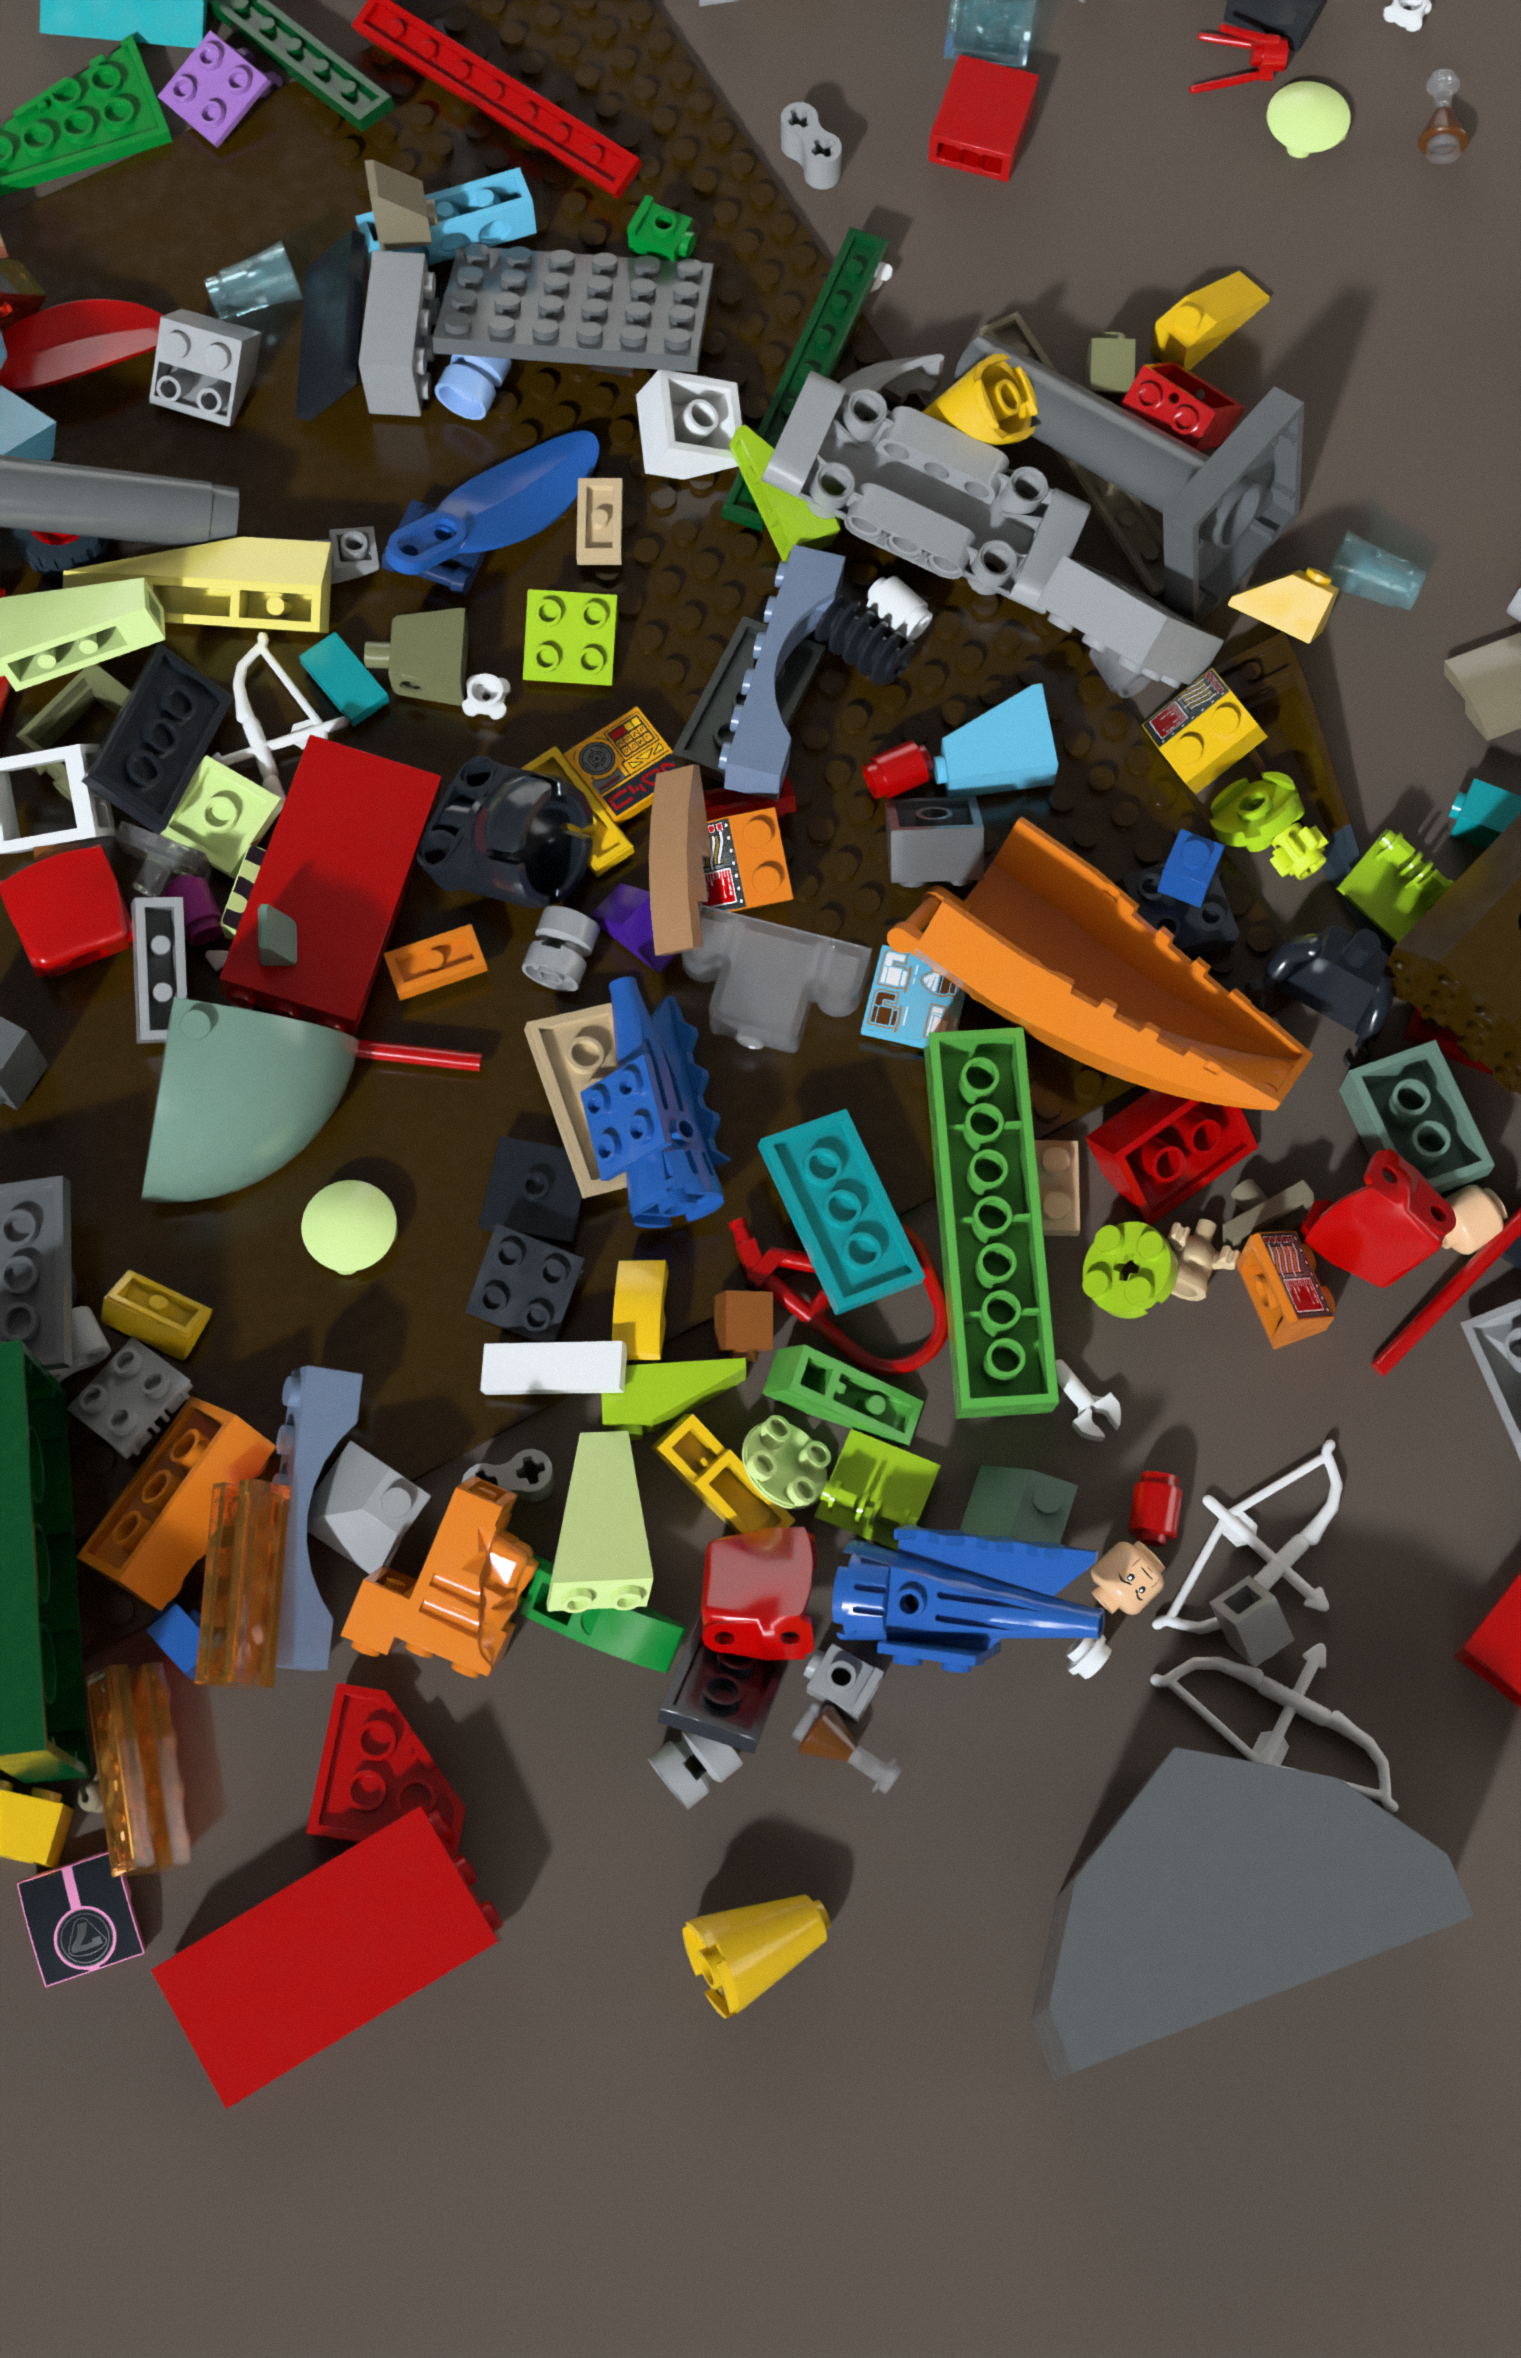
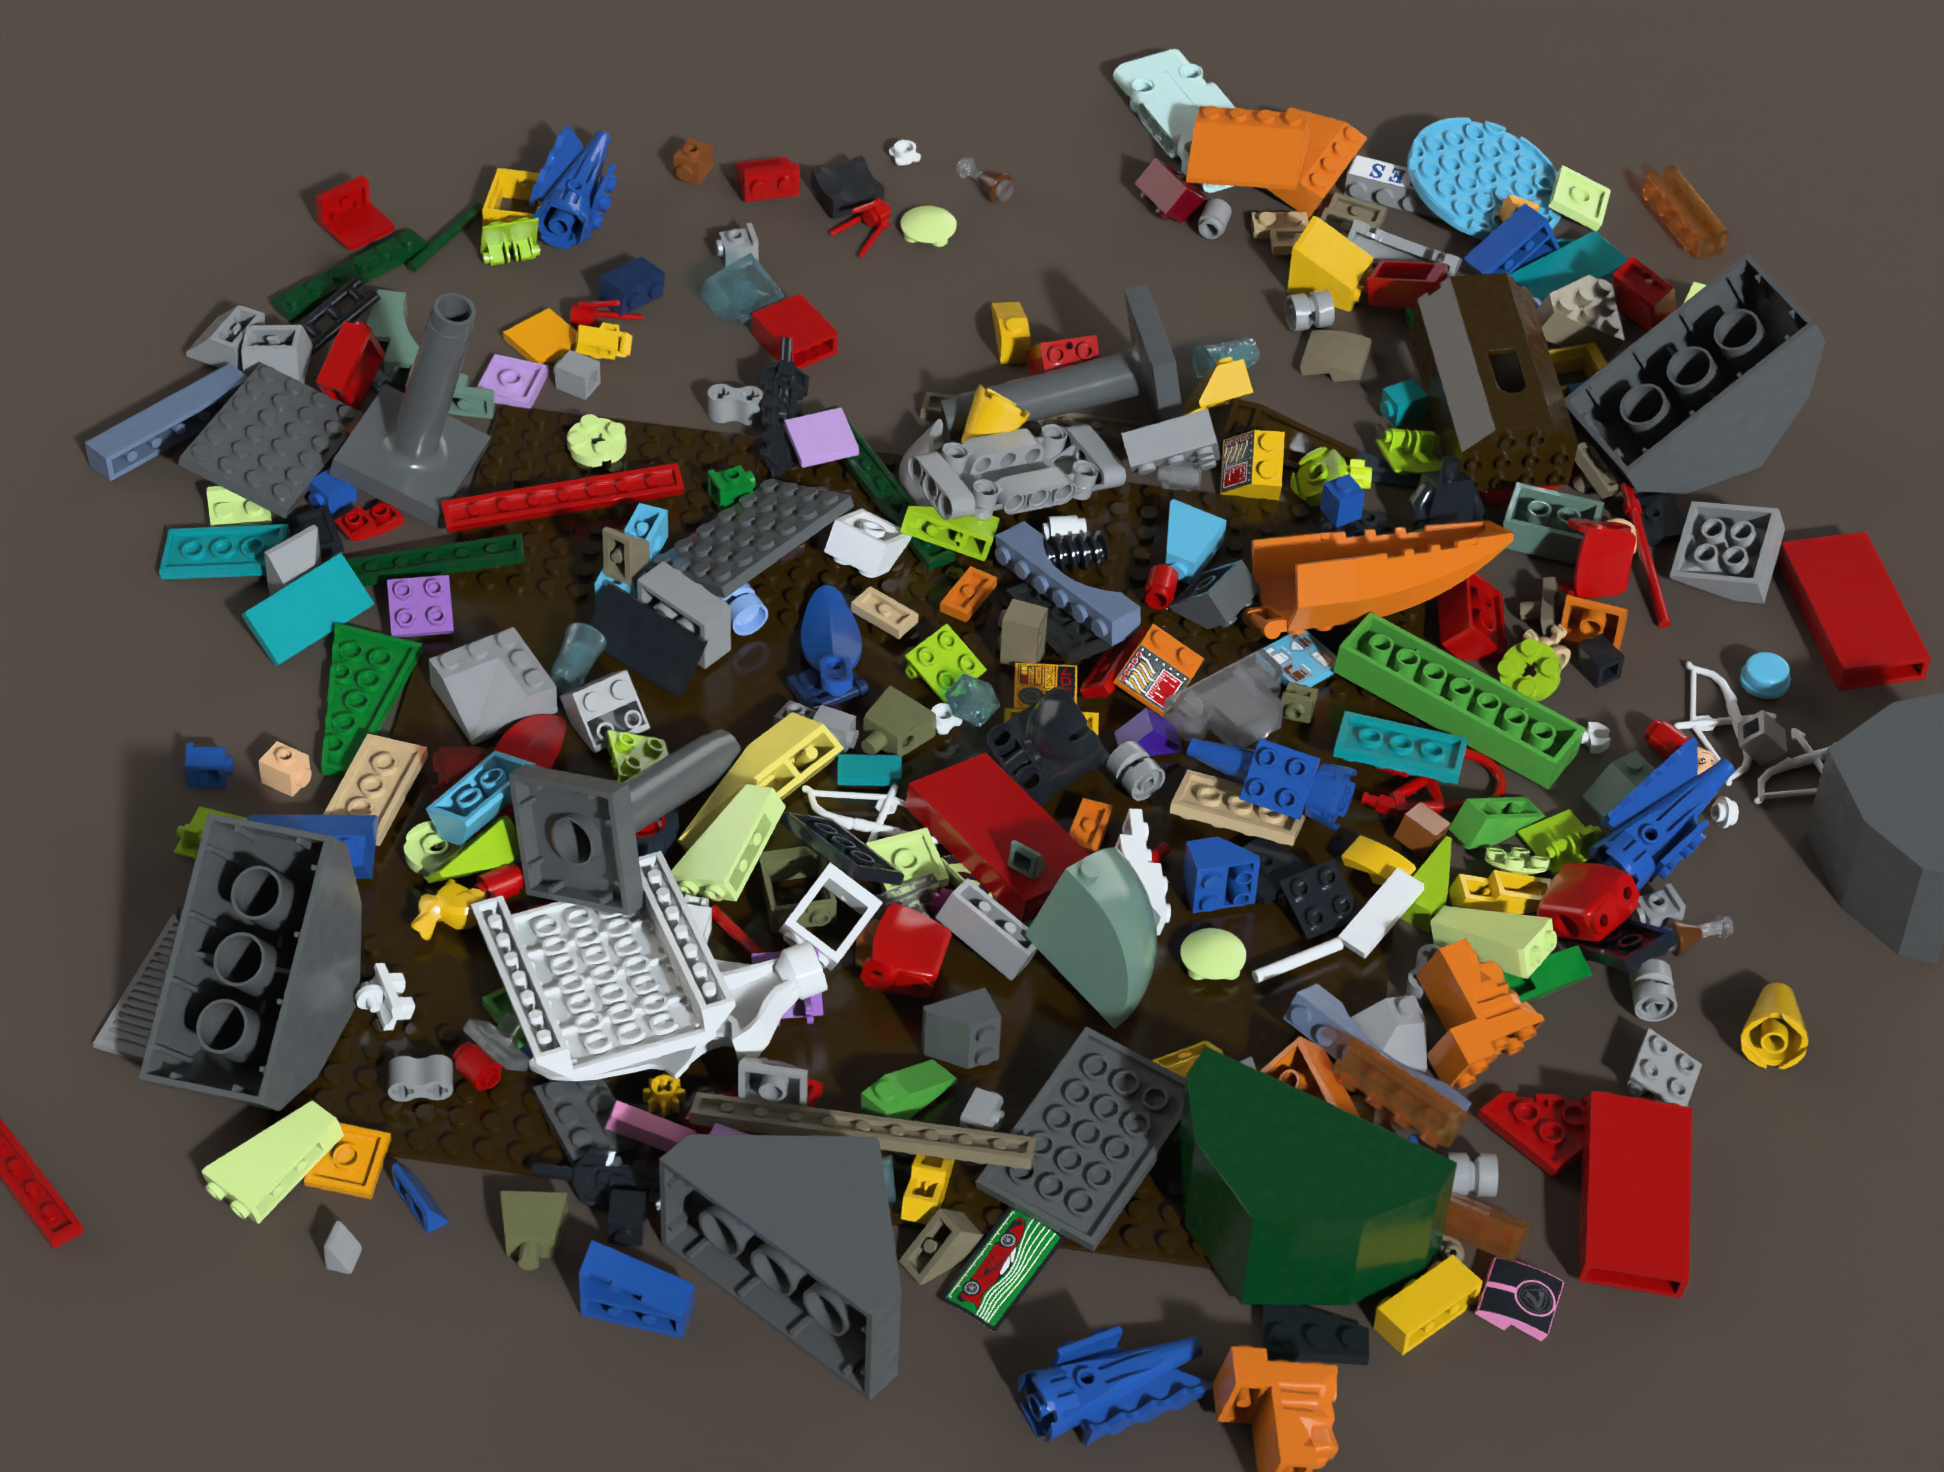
camera: 55 degrees left, 25 degrees down
(150, 236) = (492, 685): none -> light grey slope
(162, 442) = (633, 753): none -> lime hinge
(222, 1740) = (1475, 1173): none -> light grey wheel
(361, 600) = (840, 725): none -> light grey brick
(379, 1076) = (1133, 847): none -> white slope
(417, 1323) = (1297, 960): none -> white bar
(444, 1147) = (1219, 875): none -> blue slope
(524, 706) = (972, 700): none -> clear light blue brick
(577, 1860) = (1663, 1070): none -> light grey hinge
(617, 41) = (610, 439): none -> yellowish green plate
(665, 682) = (1022, 633): none -> dark tan brick
(675, 860) = (1140, 683): medium nougat slope -> none
(705, 583) = (968, 594): none -> orange plate
(814, 263) = (821, 437): none -> lavender tile
(833, 1046) = (1299, 702): none -> olive bracket
(870, 167) = (785, 387): none -> black bar
(1110, 365) = (1009, 365): olive slope -> none
(1228, 1335) = (1599, 660): none -> black brick
(1381, 1554) = (1765, 675): none -> medium azure piece

